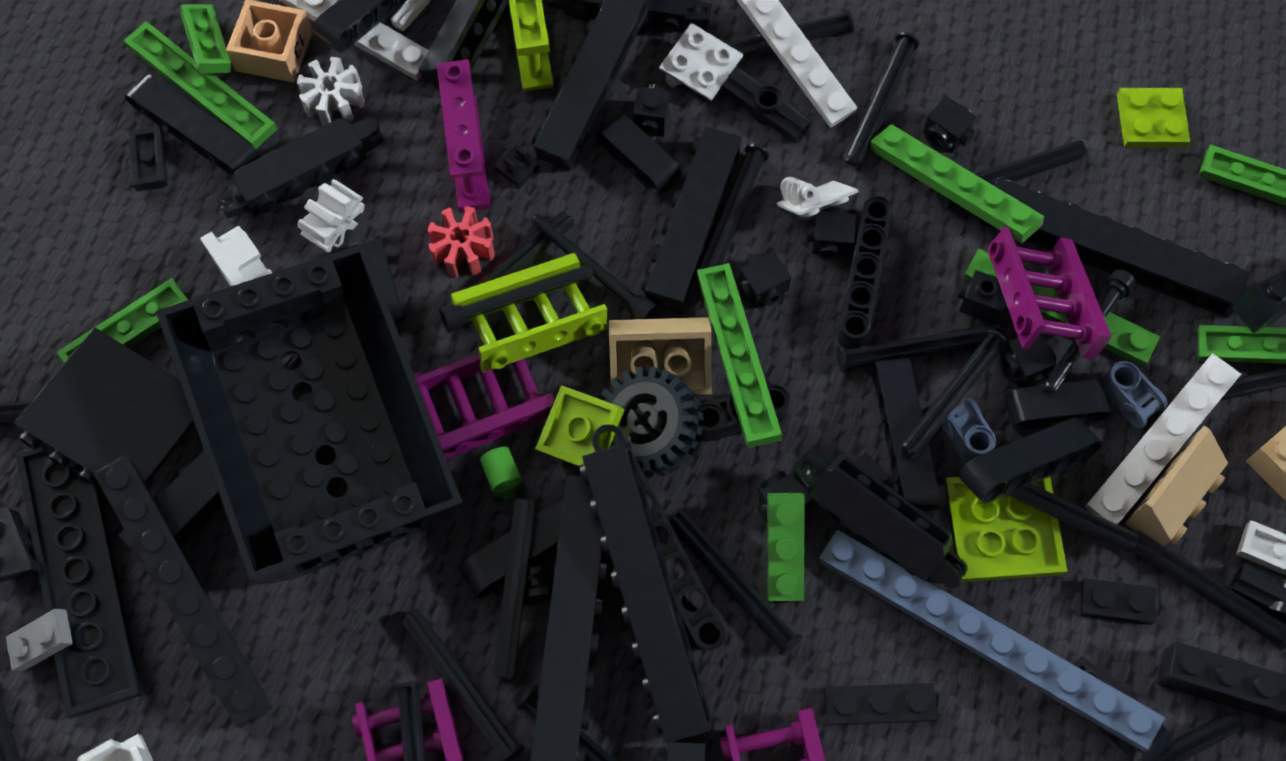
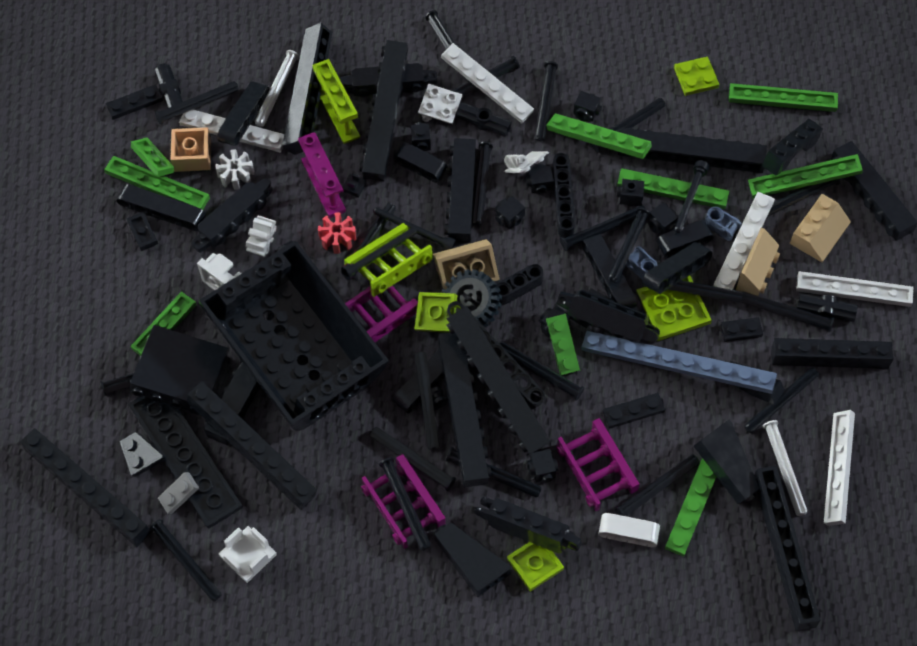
camera: 15 degrees left, 5 degrees down
(501, 472) = (401, 345): bright green piece -> none
(739, 356) = (509, 253): bright green plate -> none
(1069, 281) = (670, 170): magenta fence -> none

